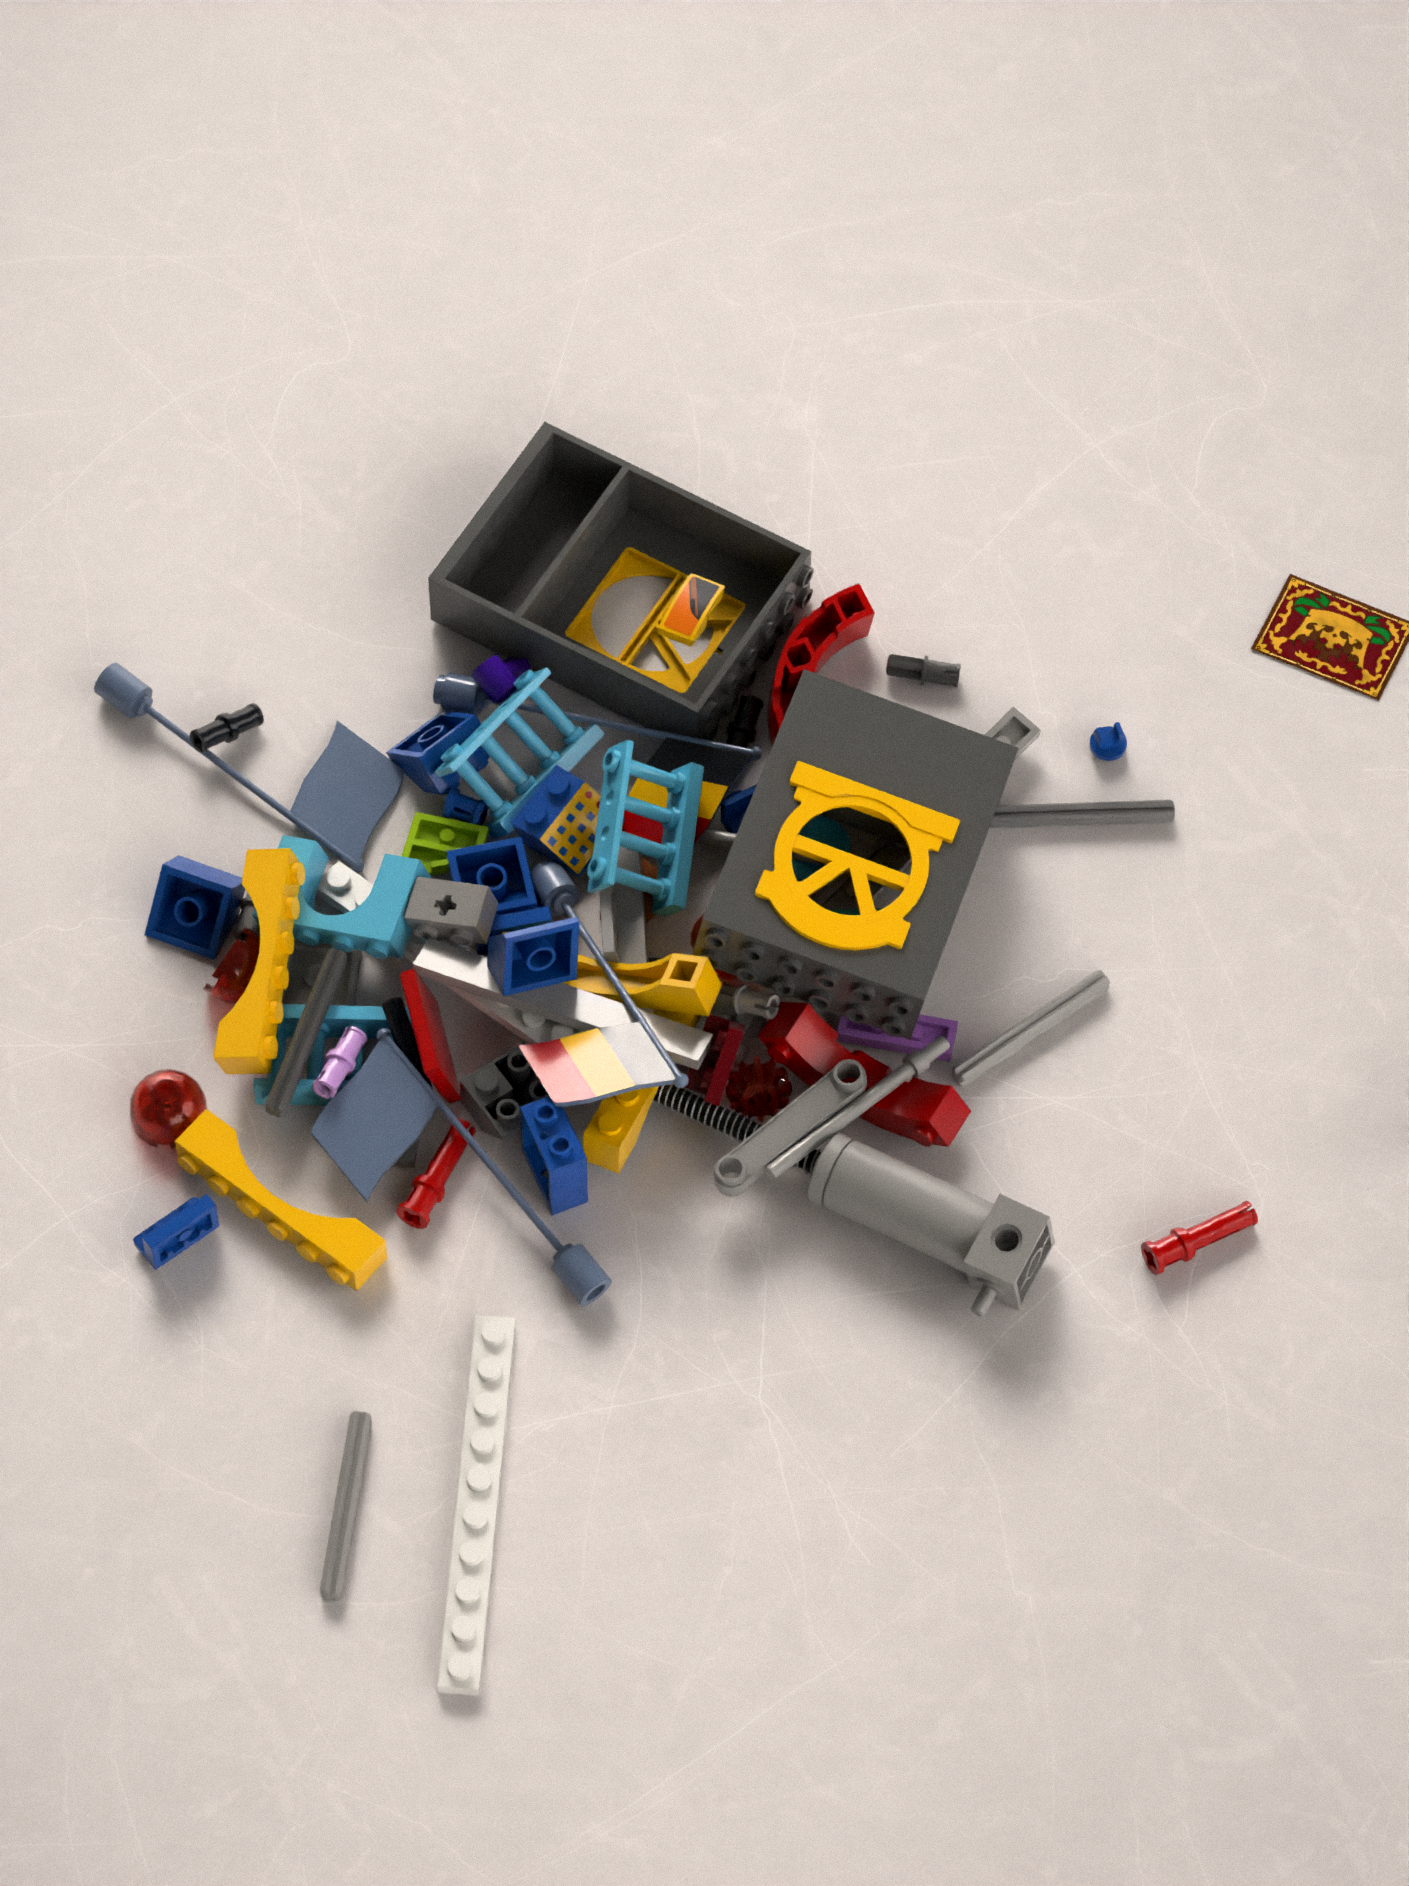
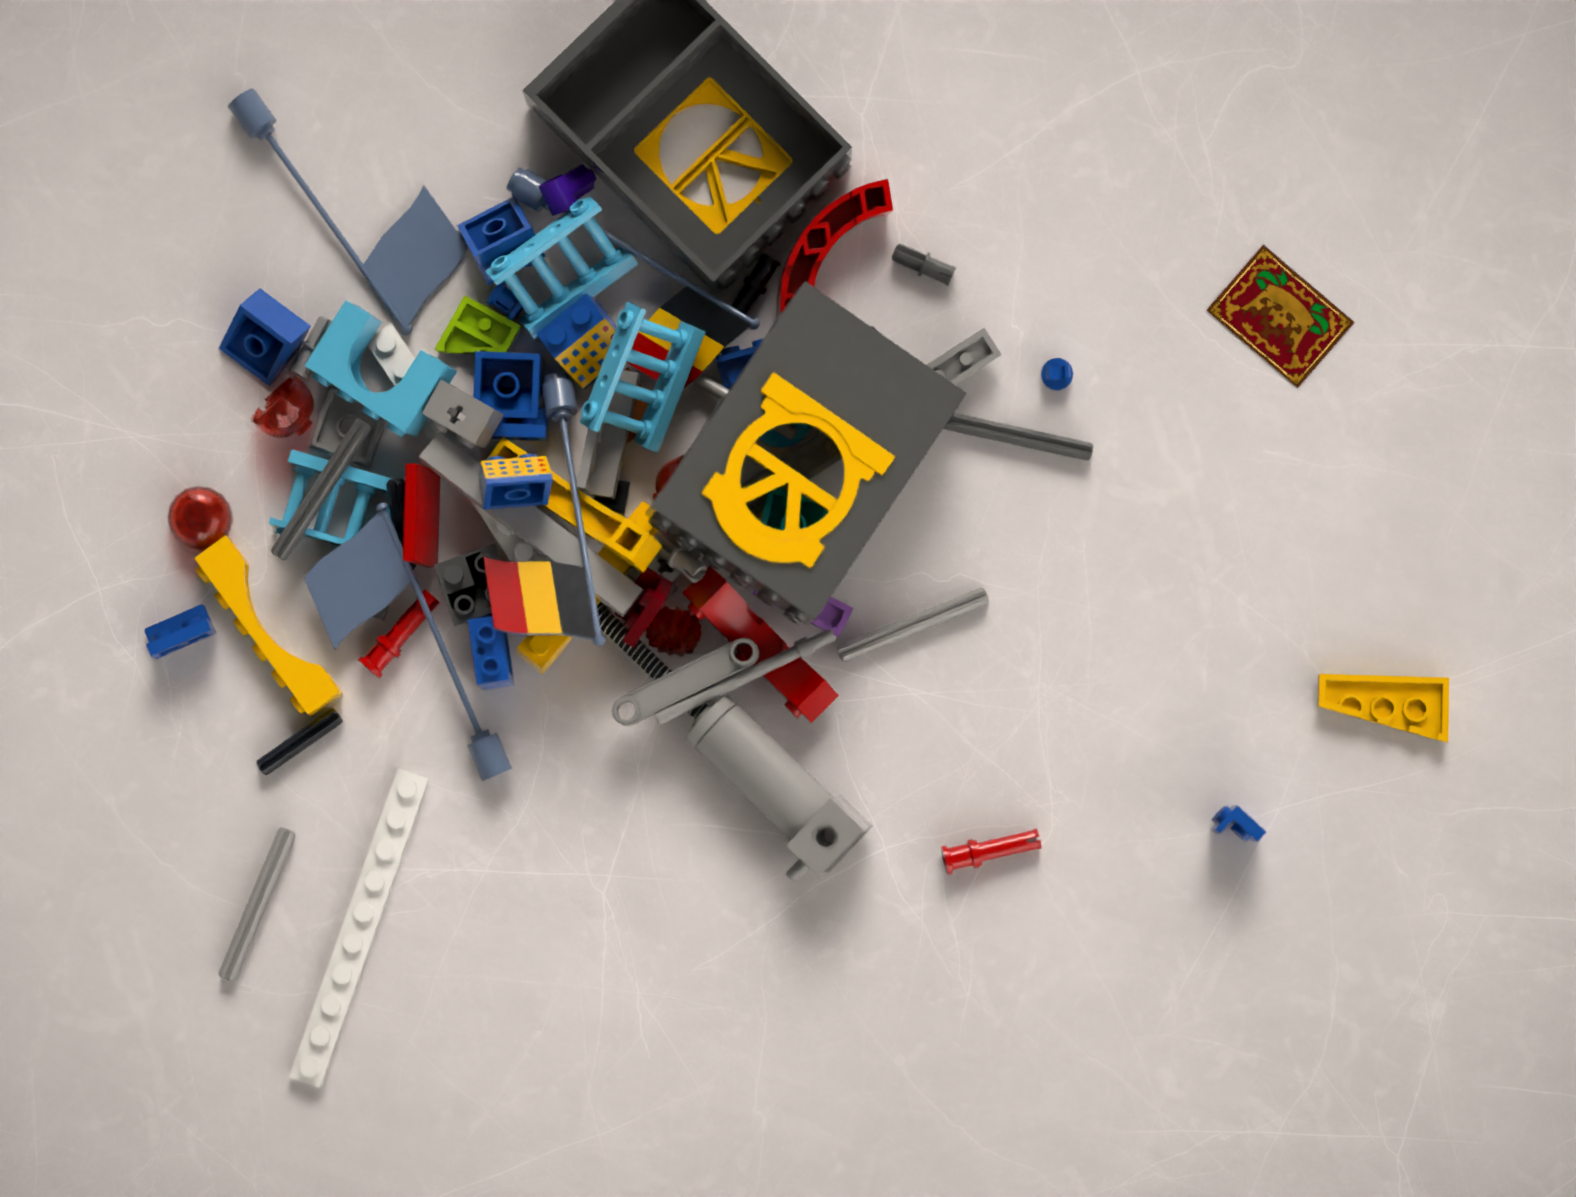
camera: 15 degrees right, 25 degrees up
(226, 727) = (328, 173): black pin -> none
(248, 1032) = (322, 355): yellow arch -> none
(339, 1062) = (341, 523): lavender pin -> none
(349, 1317) = (299, 741): none -> black axle
(690, 609) = (733, 182): slope -> none

